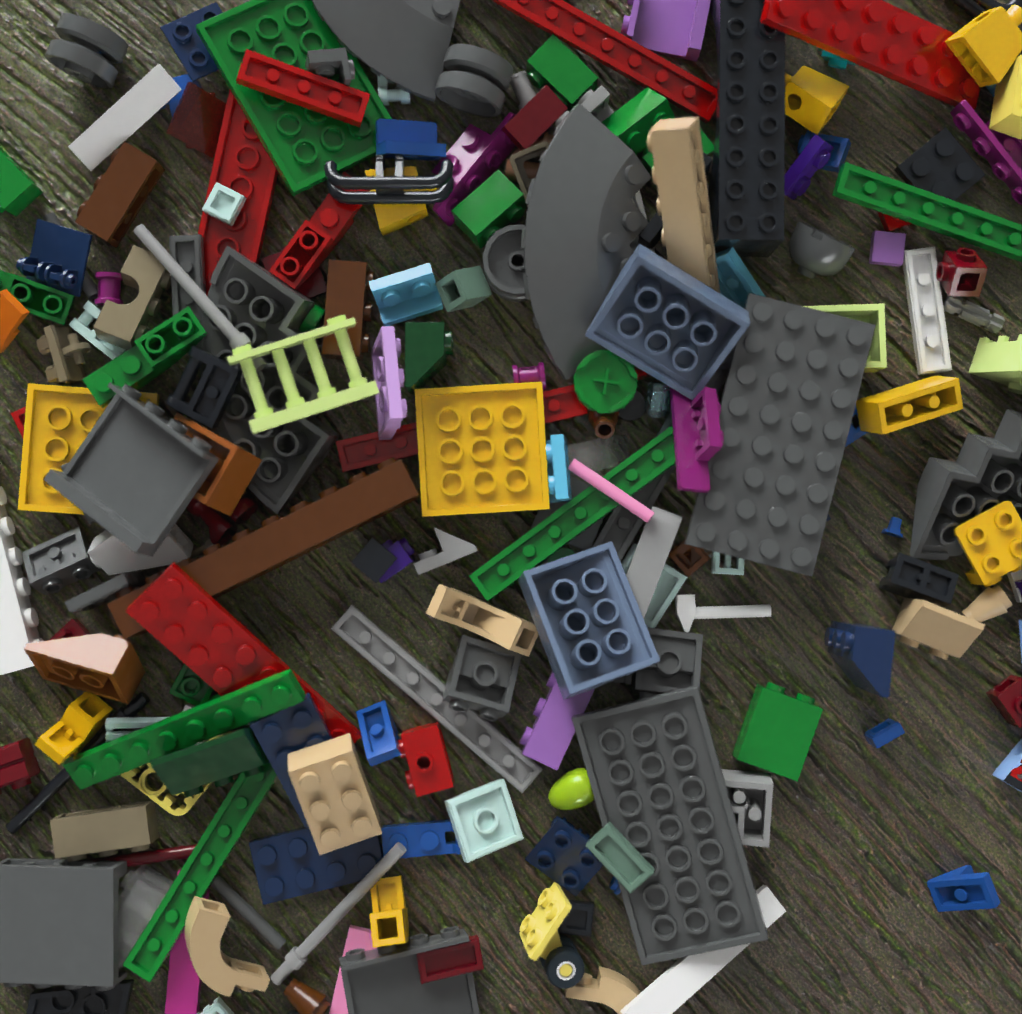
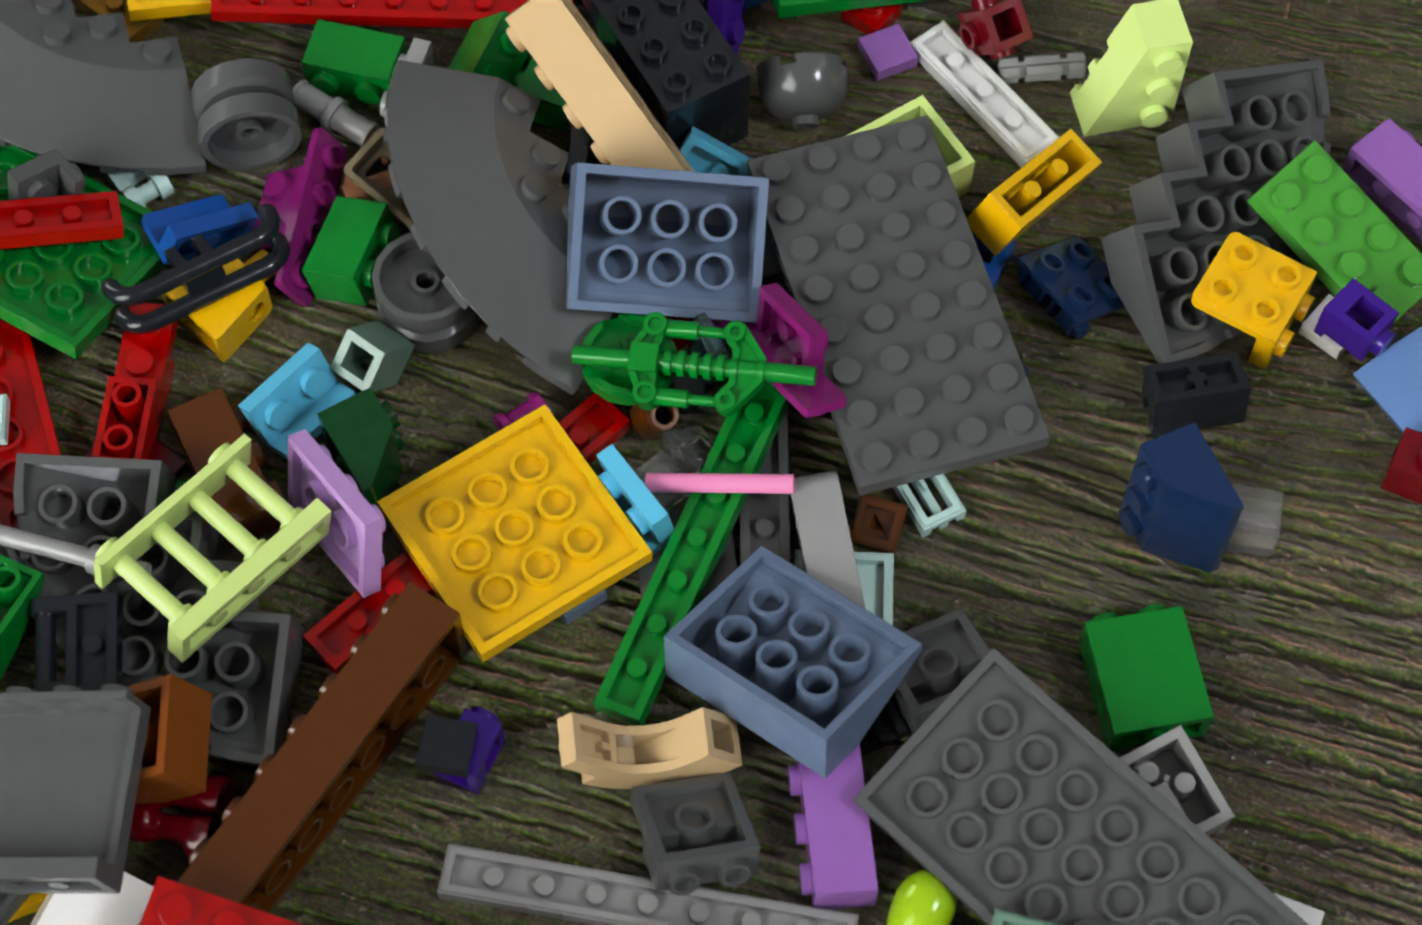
camera: 30 degrees left, 25 degrees down
(452, 547) = (550, 687): light grey slope -> none
(534, 118) = (349, 118): dark red tile -> none
(610, 396) = (645, 361): none -> green bar
(687, 611) = (922, 598): white piece -> none
(883, 733) = (1284, 600): blue tile -> none
(894, 528) = (1120, 355): blue piece -> none
(896, 468) = (1072, 282): none -> dark blue hinge
(904, 677) = (1259, 521): none -> clear brick
(936, 628) = (1258, 425): tan slope -> none
(988, 604) = (1301, 377): tan cone -> none

